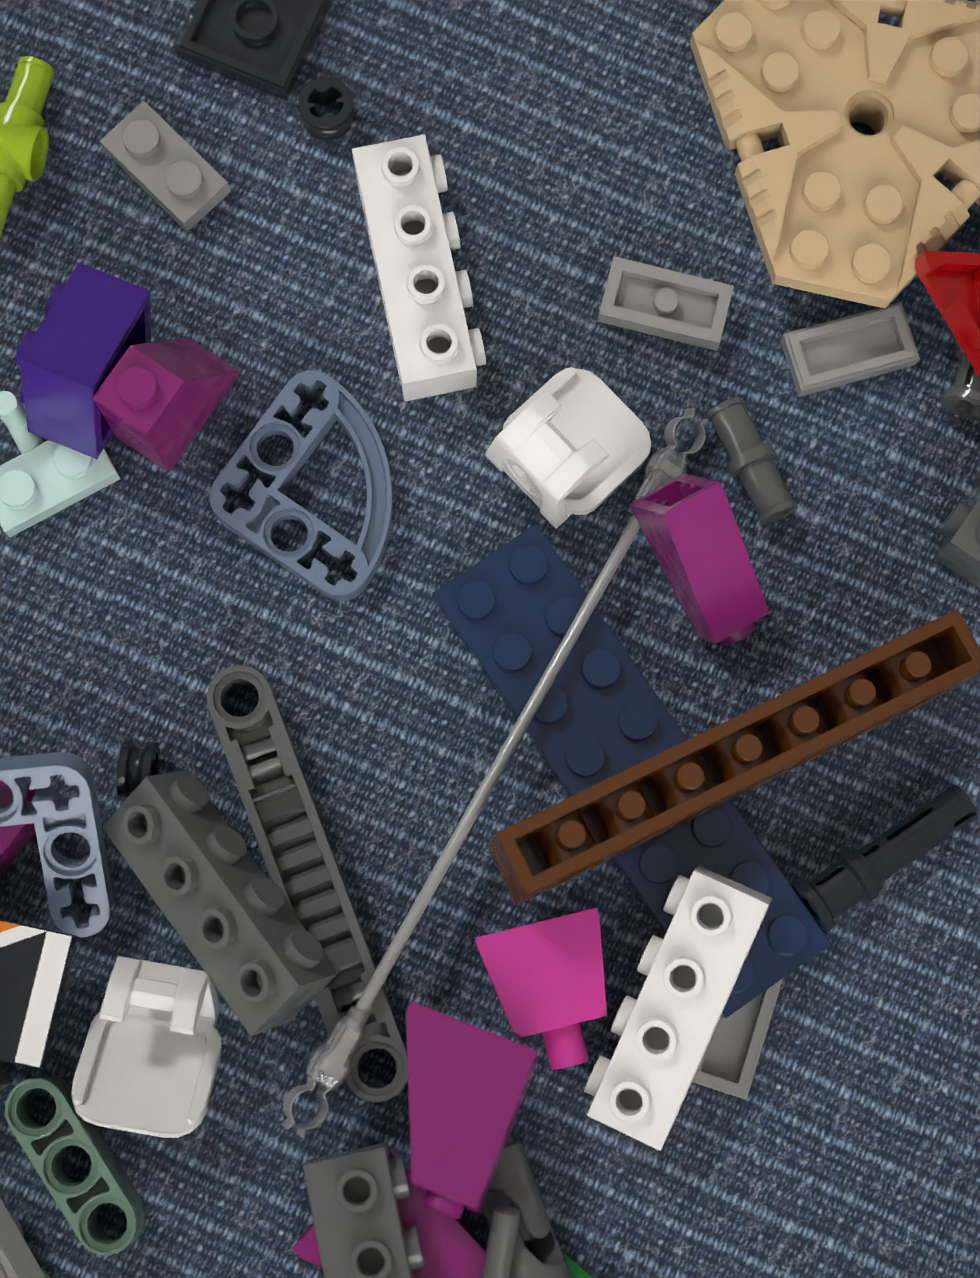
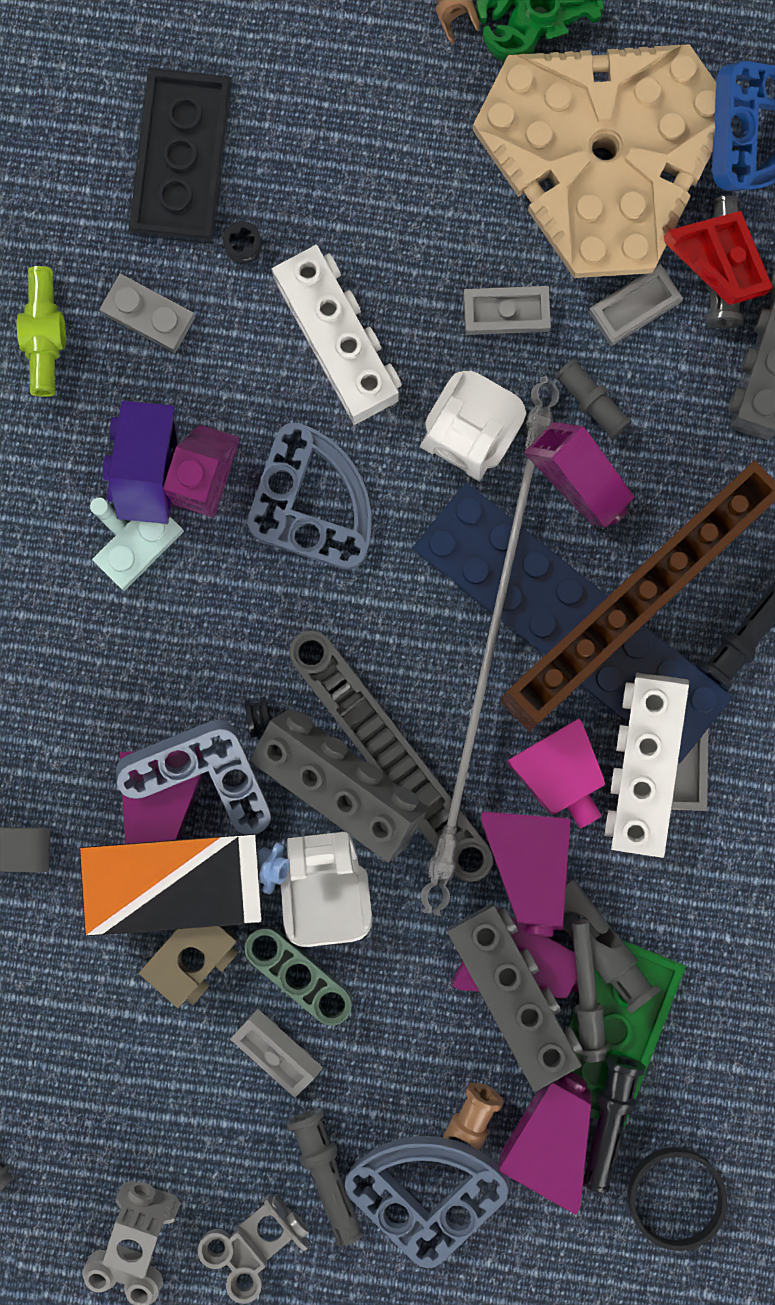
camera: 15 degrees left, 5 degrees up
(85, 992) = (272, 867): none -> light blue plate

